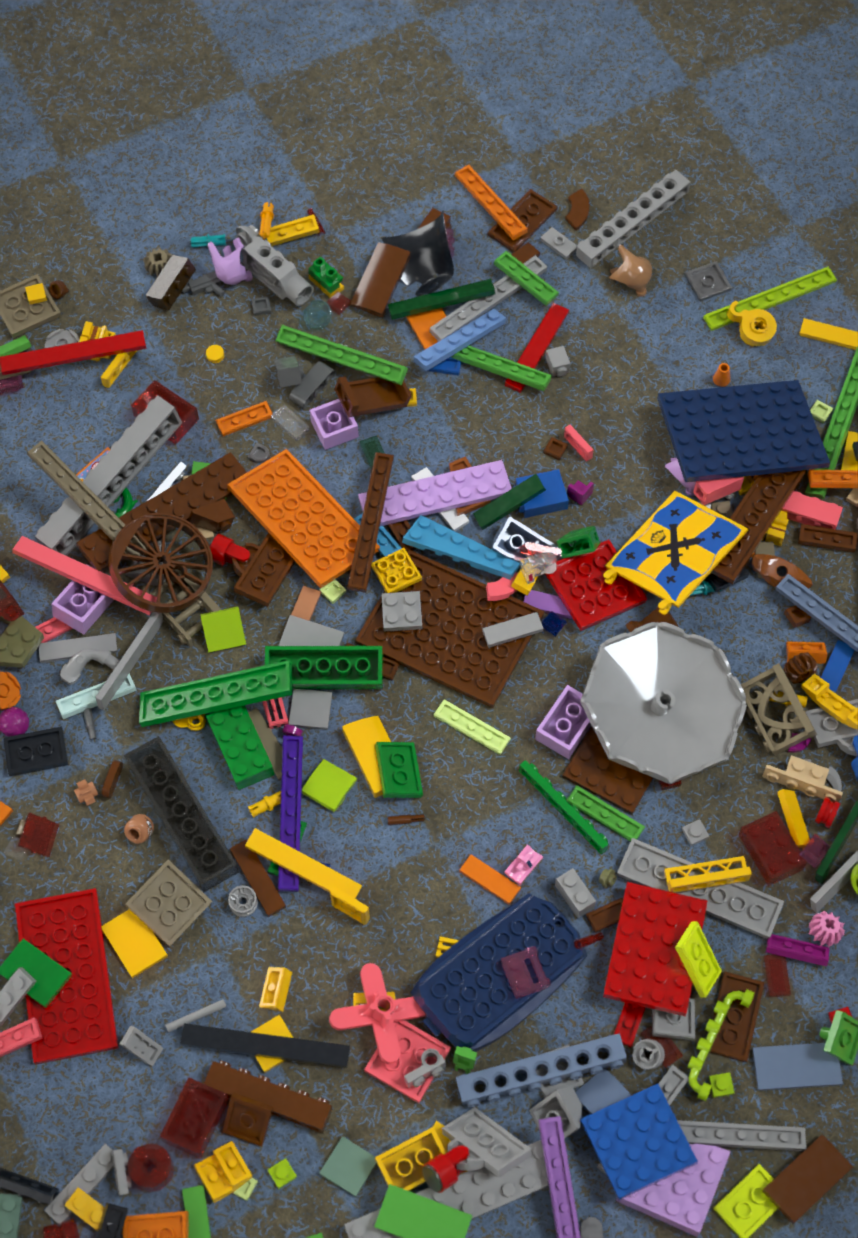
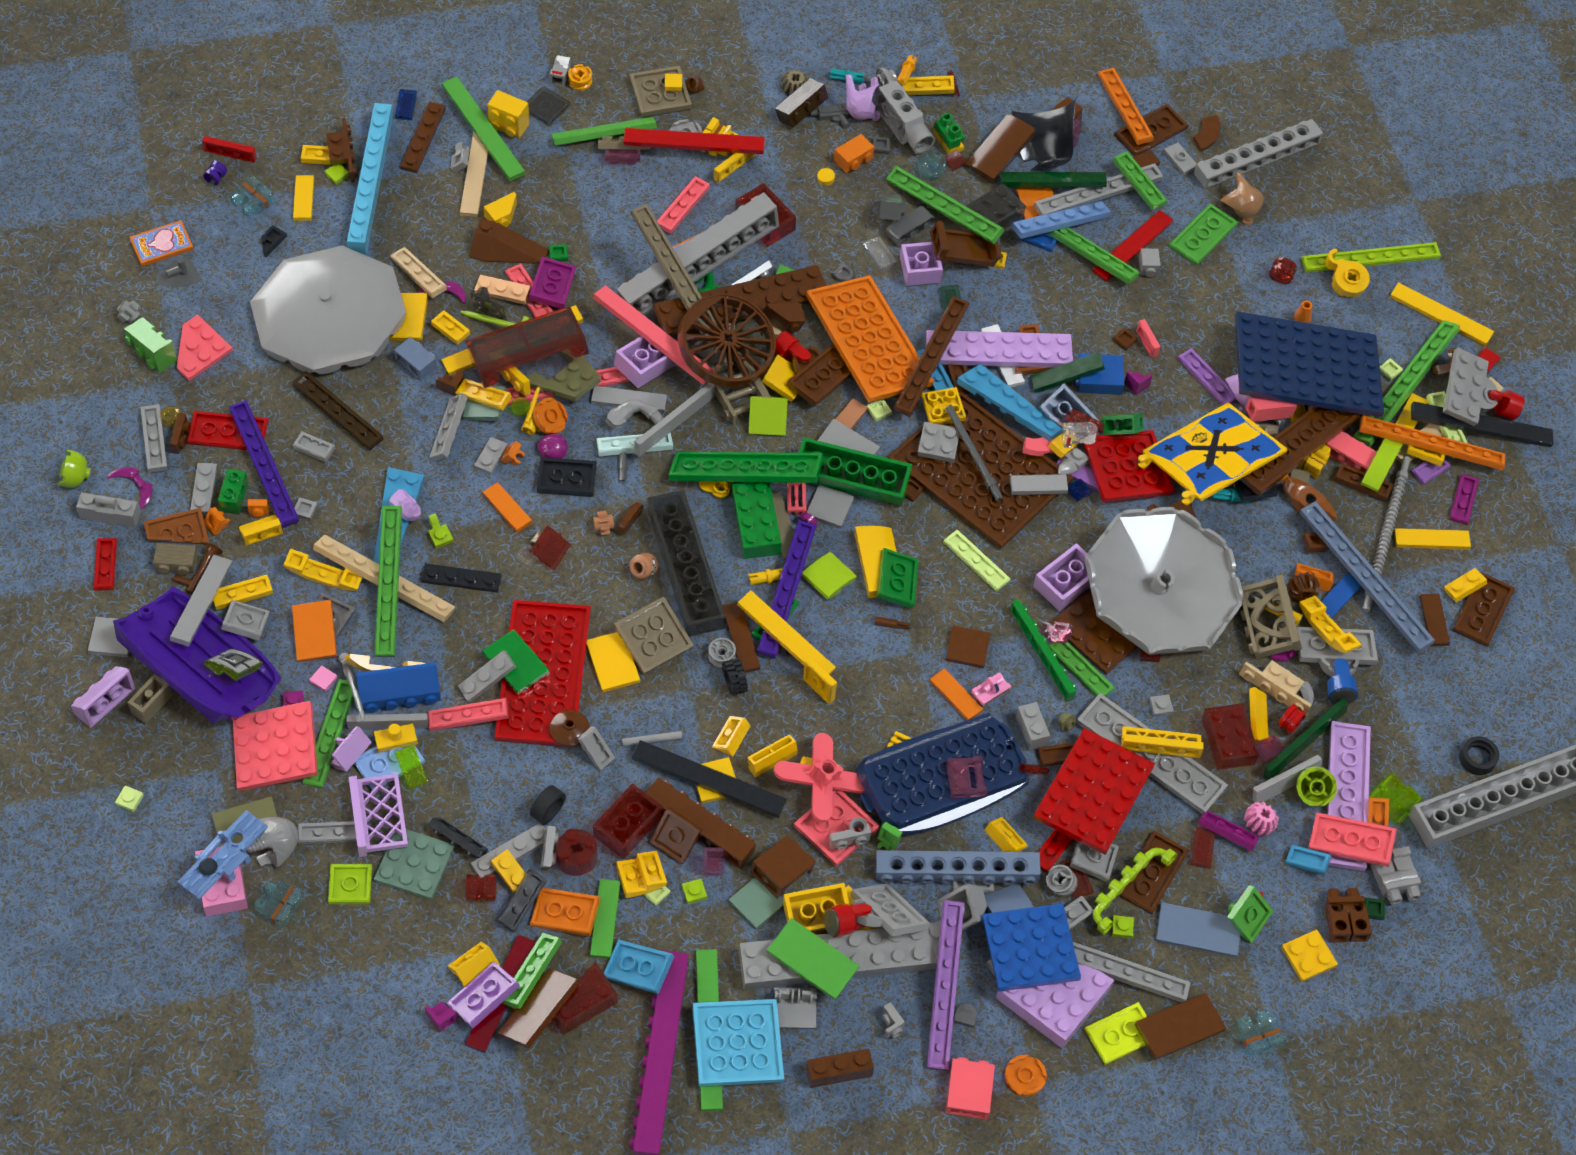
camera: 10 degrees right, 5 degrees down
(79, 422) = (683, 204): none -> coral plate
(107, 1124) = (547, 804): none -> black tyre
(109, 1040) = (567, 735): none -> reddish brown dish
(222, 584) = (778, 376): none -> yellow tile
(236, 322) = (854, 153): none -> orange brick
(244, 418) = (837, 240): orange tile -> none
(263, 925) = (735, 676): none -> black tyre
(293, 1136) = (713, 861): none -> clear pink panel
(323, 1000) = (771, 755): none -> yellow piece
(364, 1121) = (781, 866): none -> reddish brown panel
(395, 343) = (999, 206): none -> clear smoke brick
(464, 641) = (990, 482): none -> dark grey bar
(488, 823) = (968, 646): none -> reddish brown tile
(539, 595) = (1073, 462): none -> light grey plate
(573, 785) = (1058, 632): none -> clear pink plate
(579, 1020) = (1005, 836): none -> yellow slope
(602, 317) = (1203, 234): none -> bright green tile
(646, 467) = (1207, 377): none -> medium lavender tile
(690, 336) = (1283, 270): none -> clear red wheel
(698, 959) = (1131, 809): neon yellow tile -> none
(708, 281) = (1315, 227): flat silver tile -> none
(841, 516) = (1381, 464): none -> lime slope

